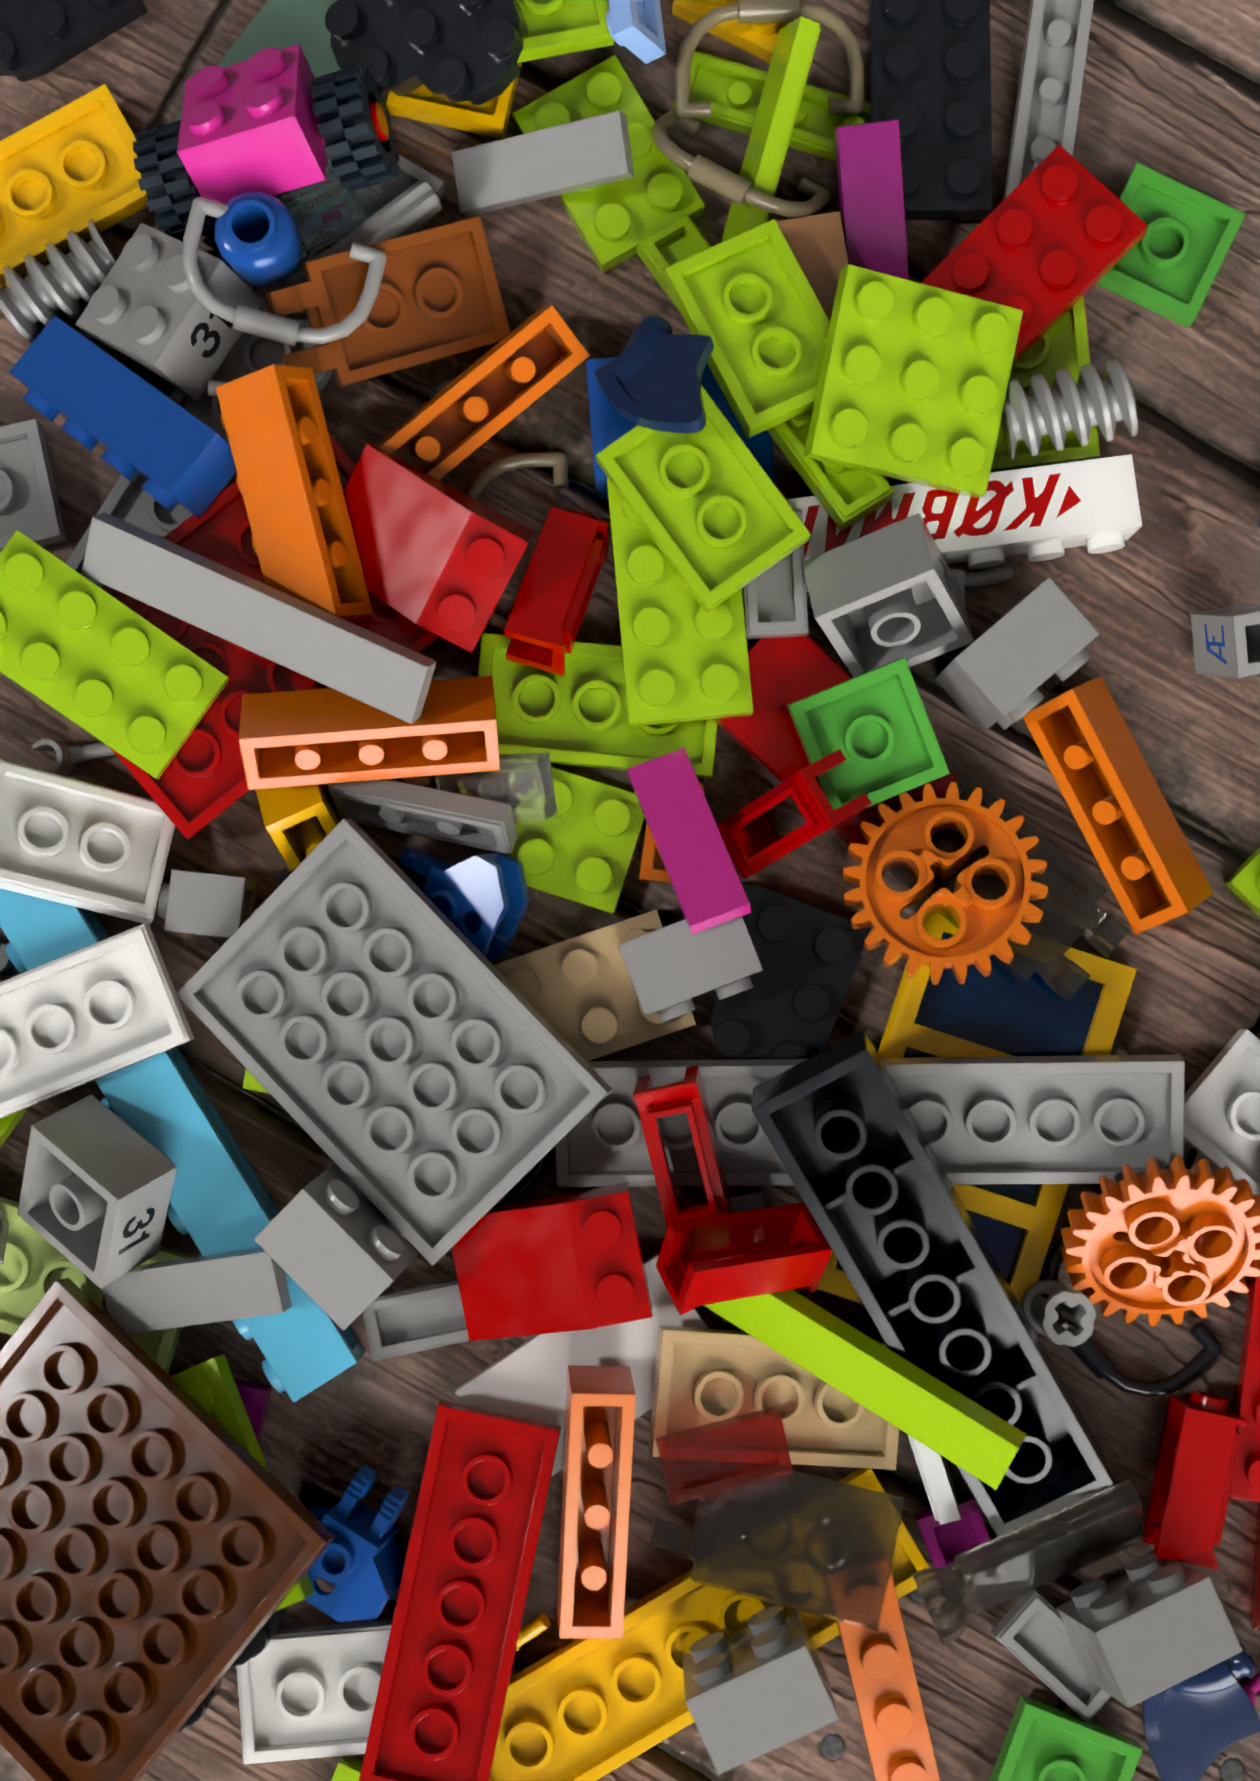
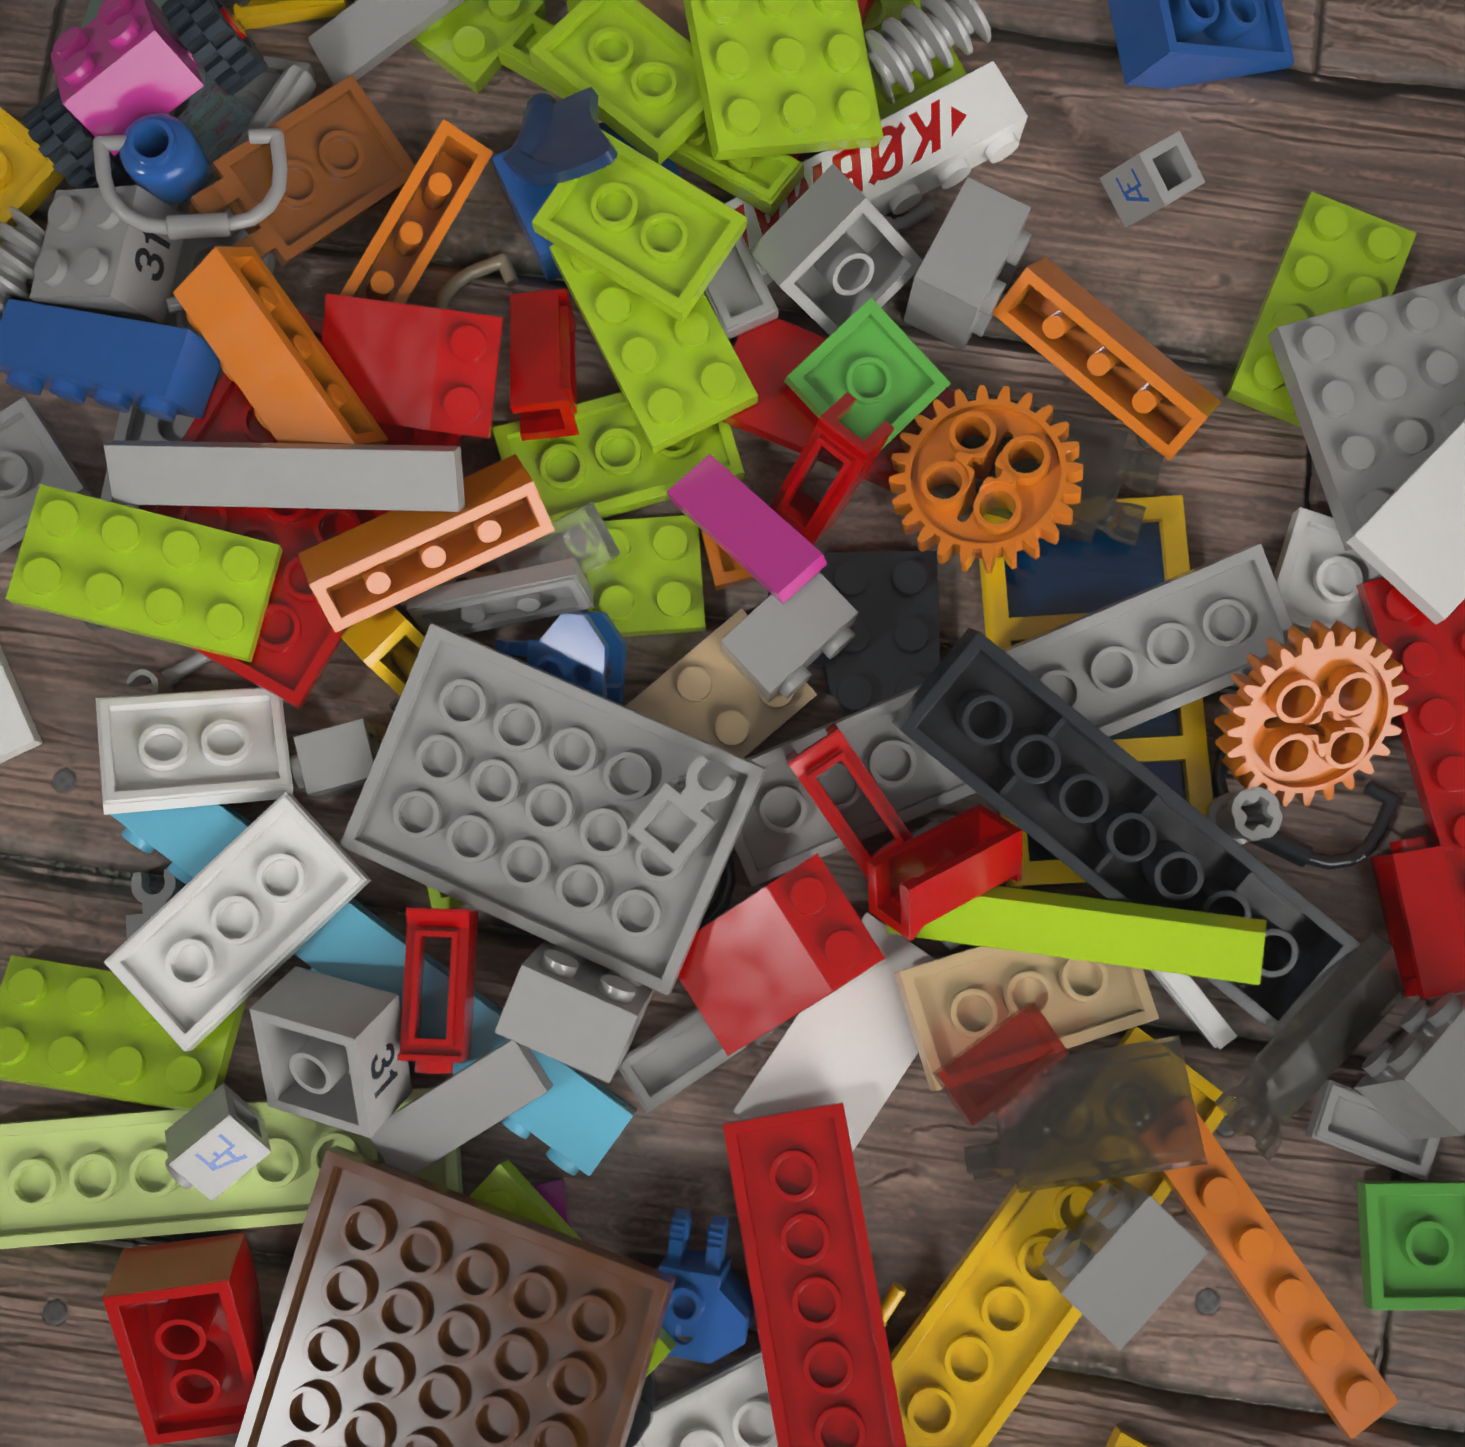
camera: 25 degrees left, 5 degrees down
(260, 1124) = (438, 1054): none -> red window
(505, 1108) = (677, 818): none -> light grey plate
(595, 1501) = (902, 1155): orange brick -> none
(955, 1537) = (1229, 1063): magenta plate -> none

